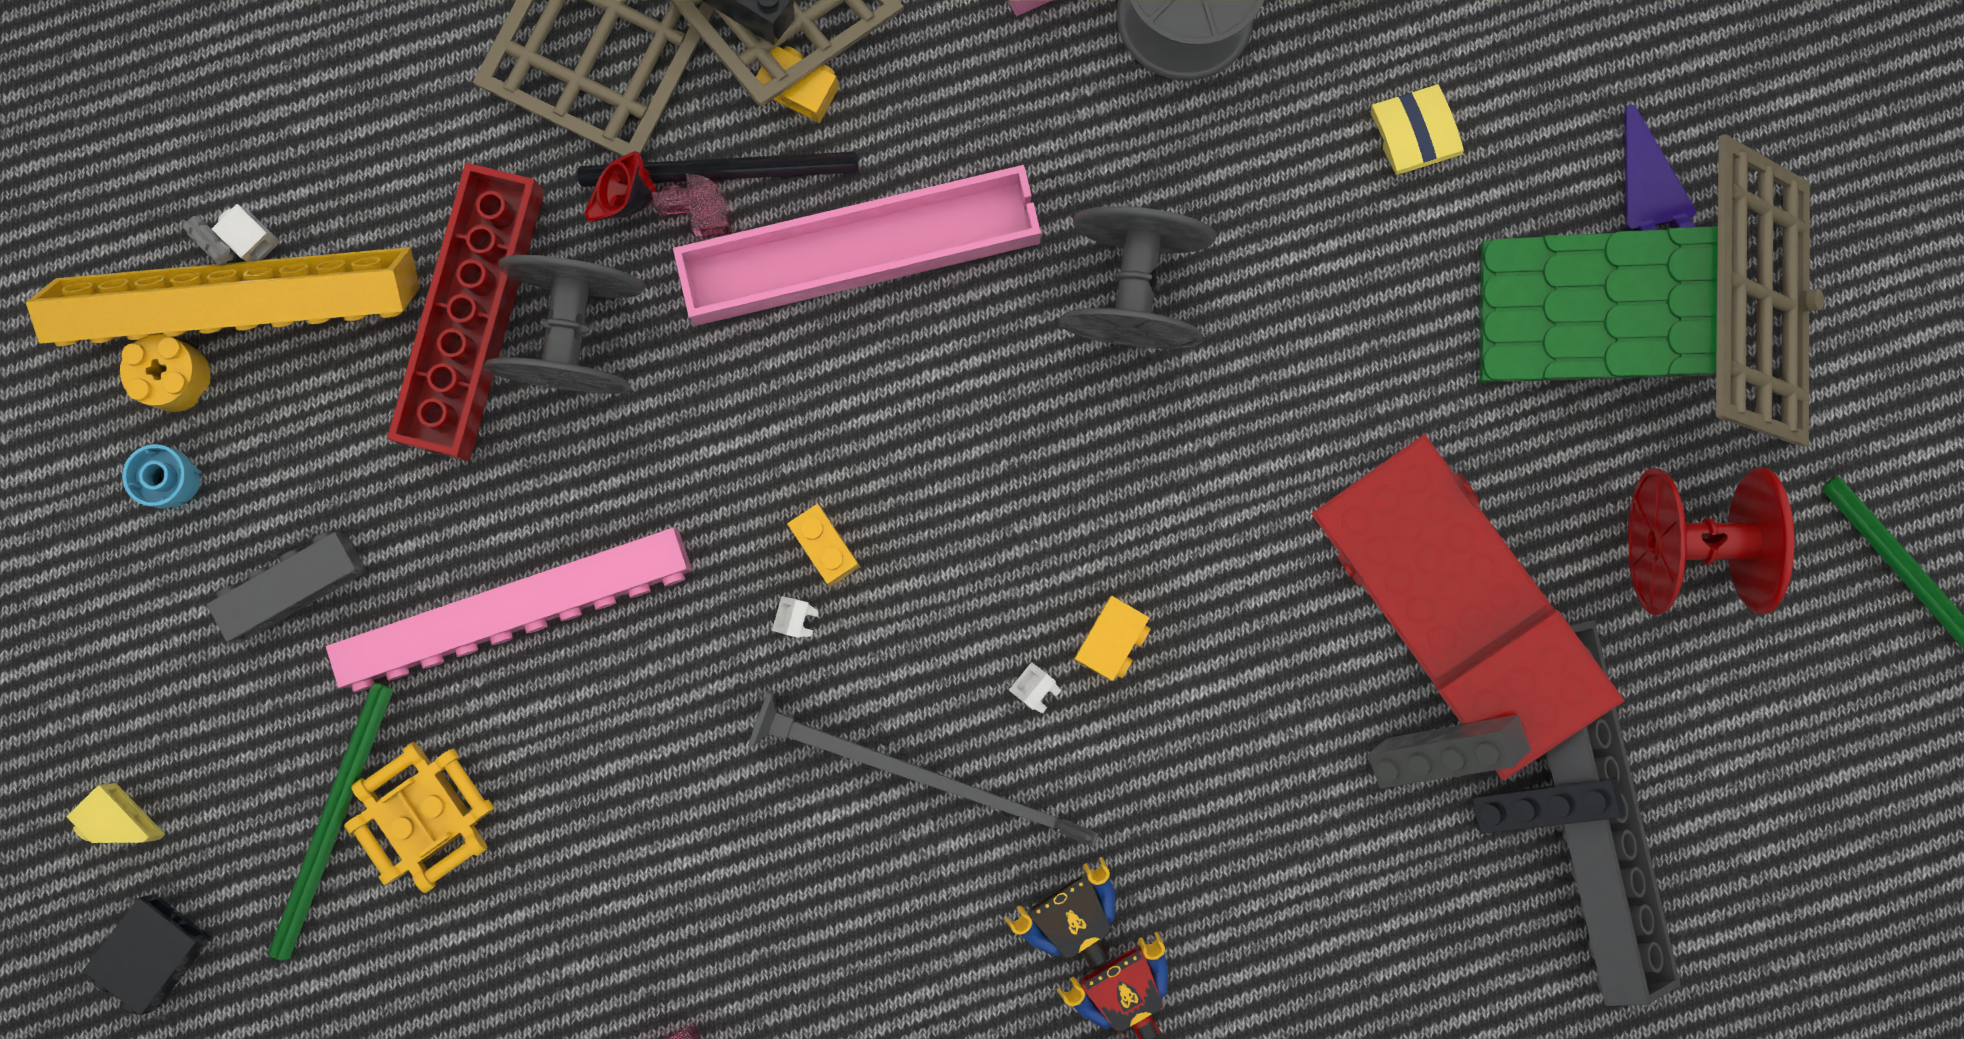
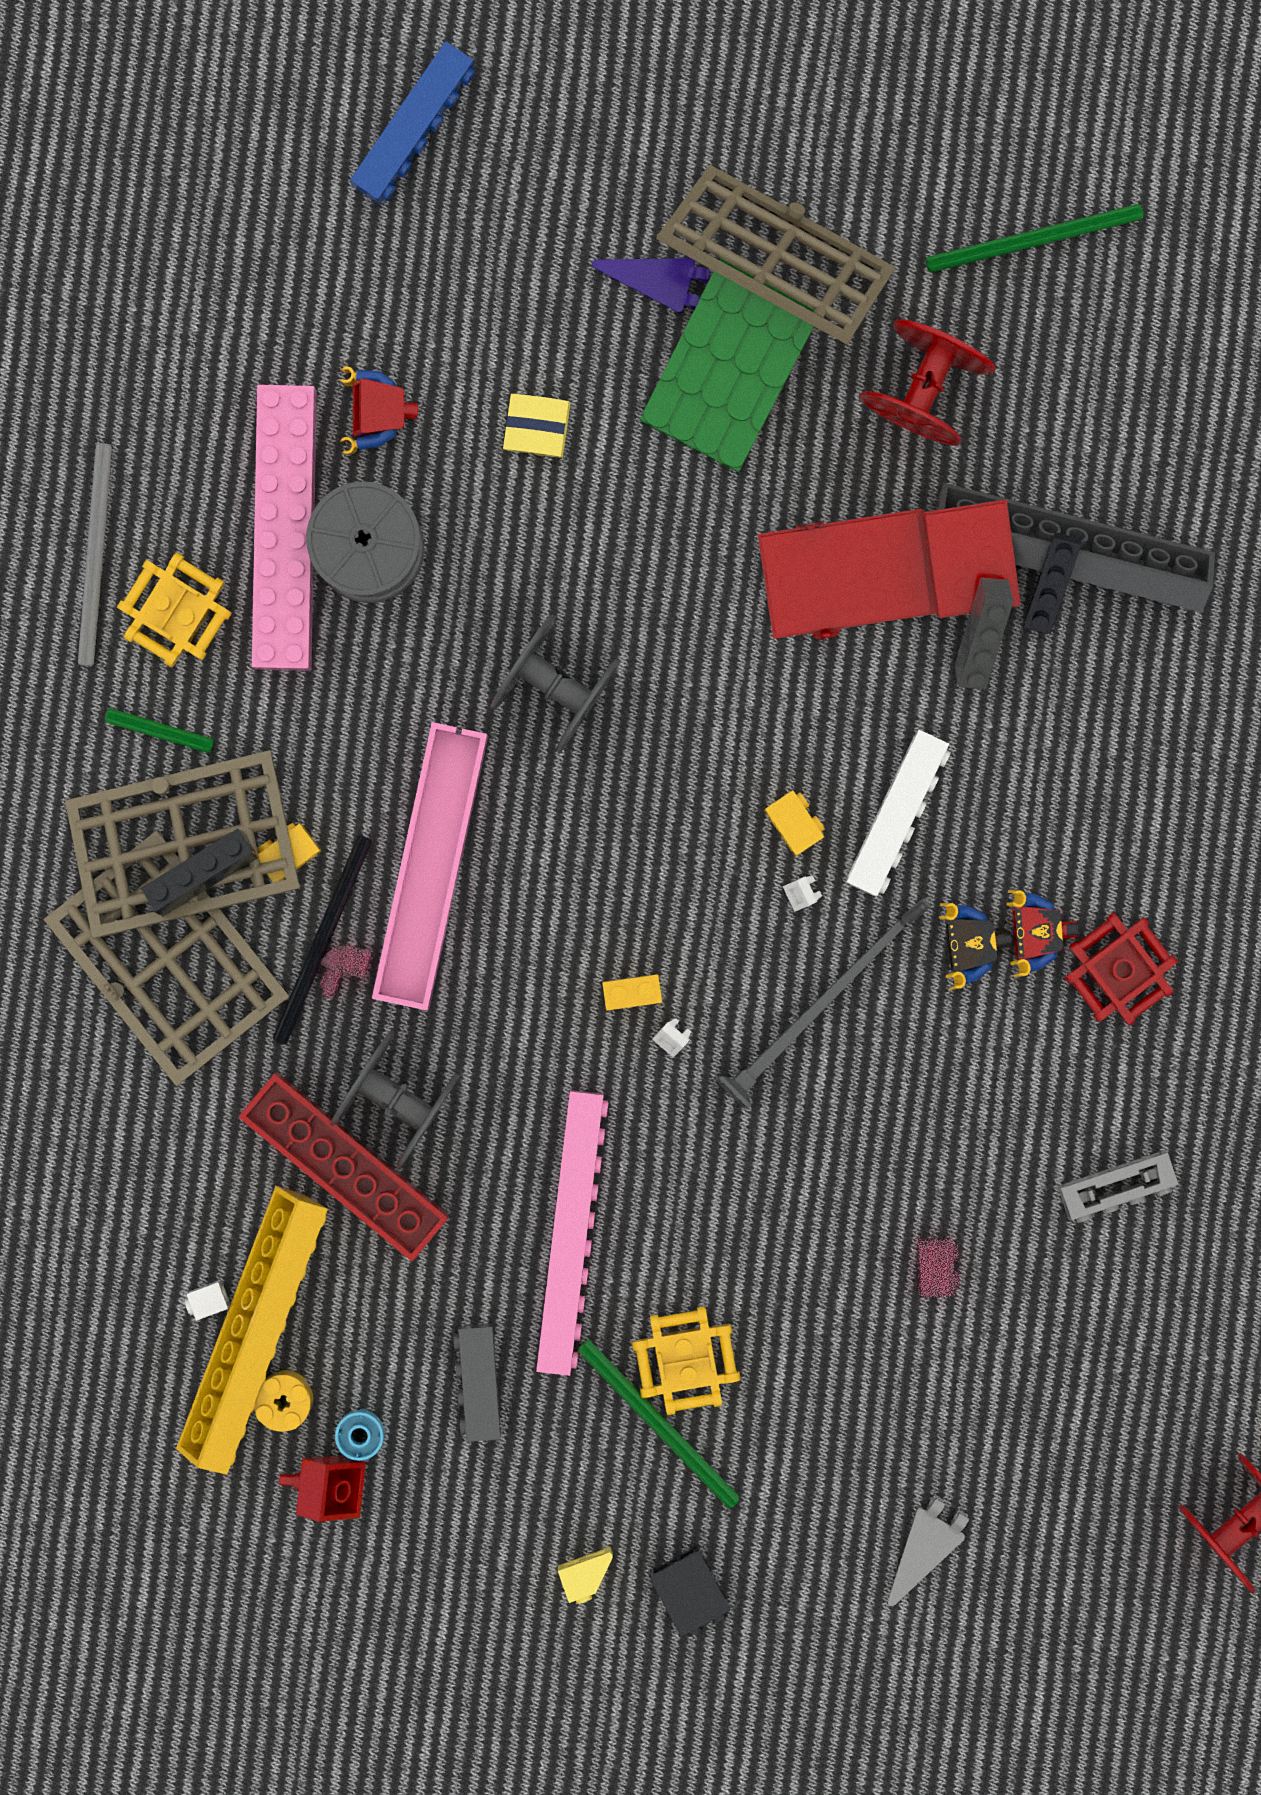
camera: 65 degrees left, 5 degrees up
(77, 470) = (328, 1488): none -> red piece
(208, 240) = (200, 1328): light grey axle -> none
(621, 189) = (308, 1017): red hat -> none
(1183, 755) = (897, 813): none -> white brick

